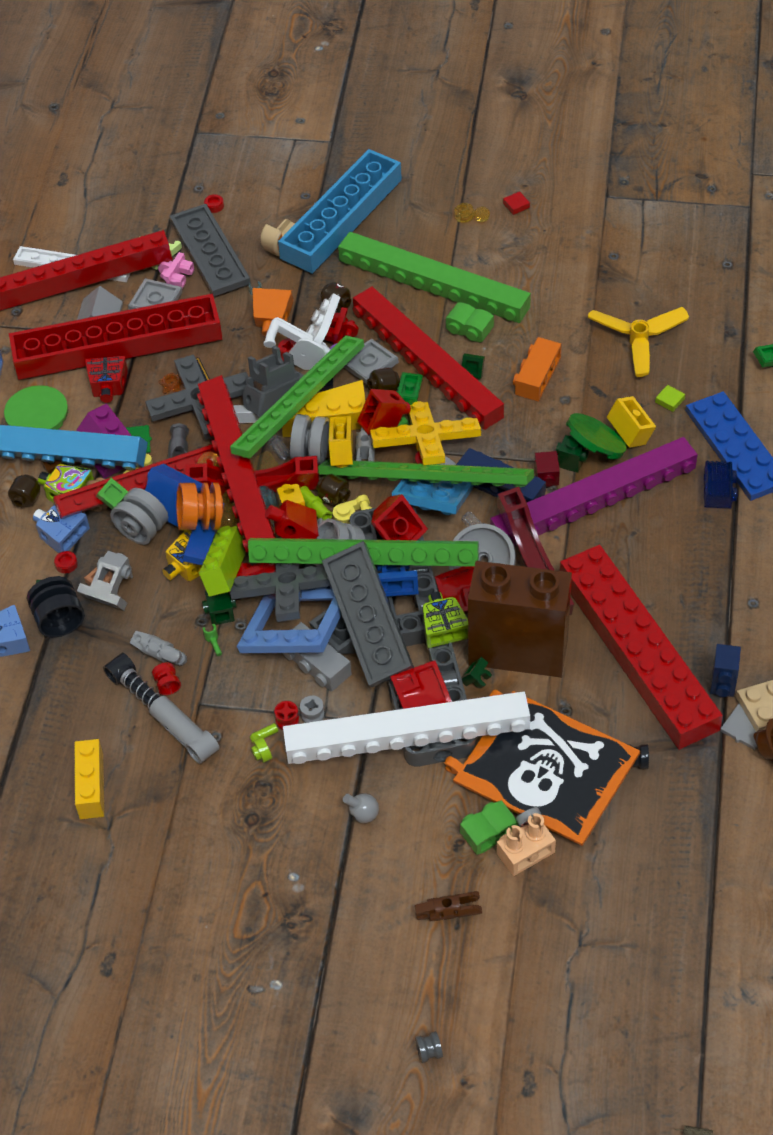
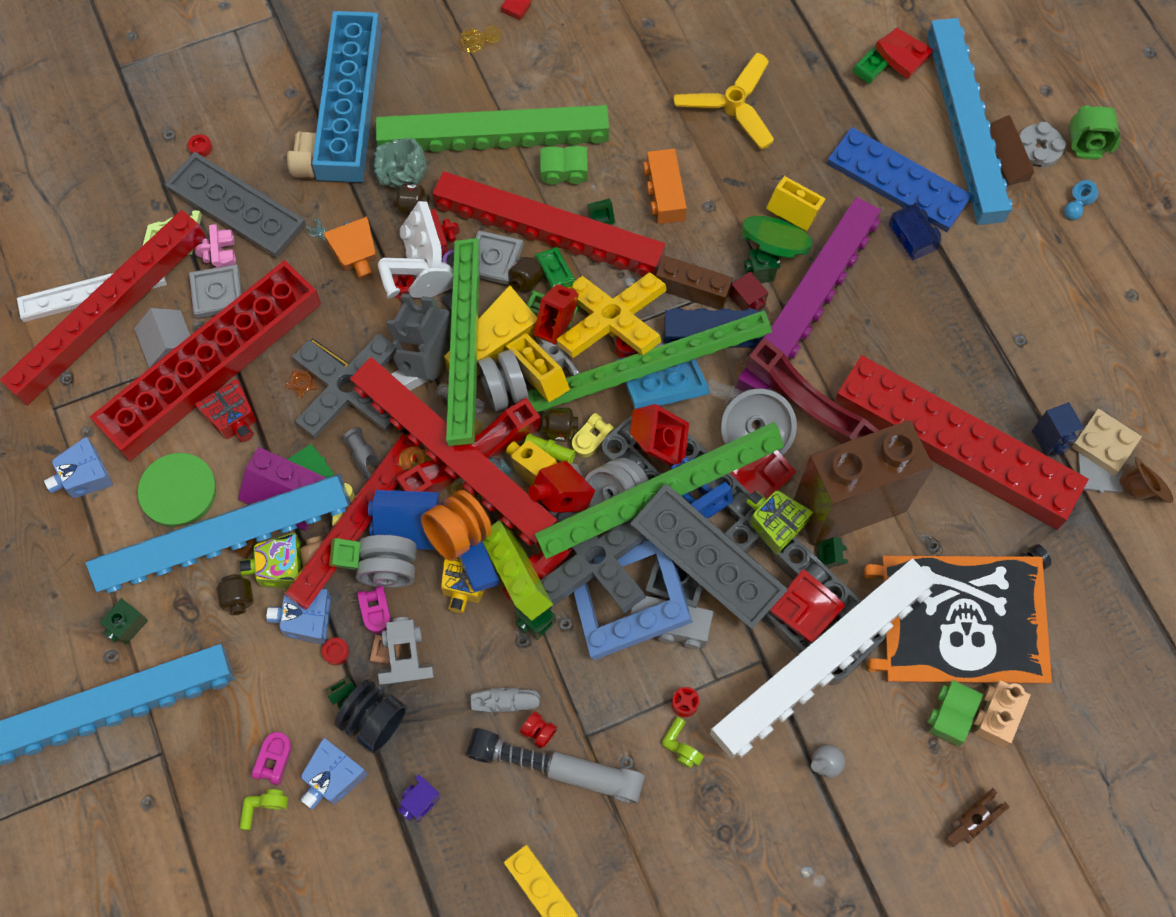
camera: 35 degrees left, 15 degrees up
(50, 680) = (418, 800): none -> dark purple brick
(107, 543) = (376, 616): none -> dark pink plate
(212, 637) = (549, 655): bright green hand -> none
(317, 712) = (705, 687): light grey wheel -> none
(345, 268) = (400, 163): none -> sand green hair
(507, 441) = (694, 282): none -> reddish brown brick
(522, 818) = (992, 685): light grey tile -> none
(670, 398) = (806, 157): lime tile -> none

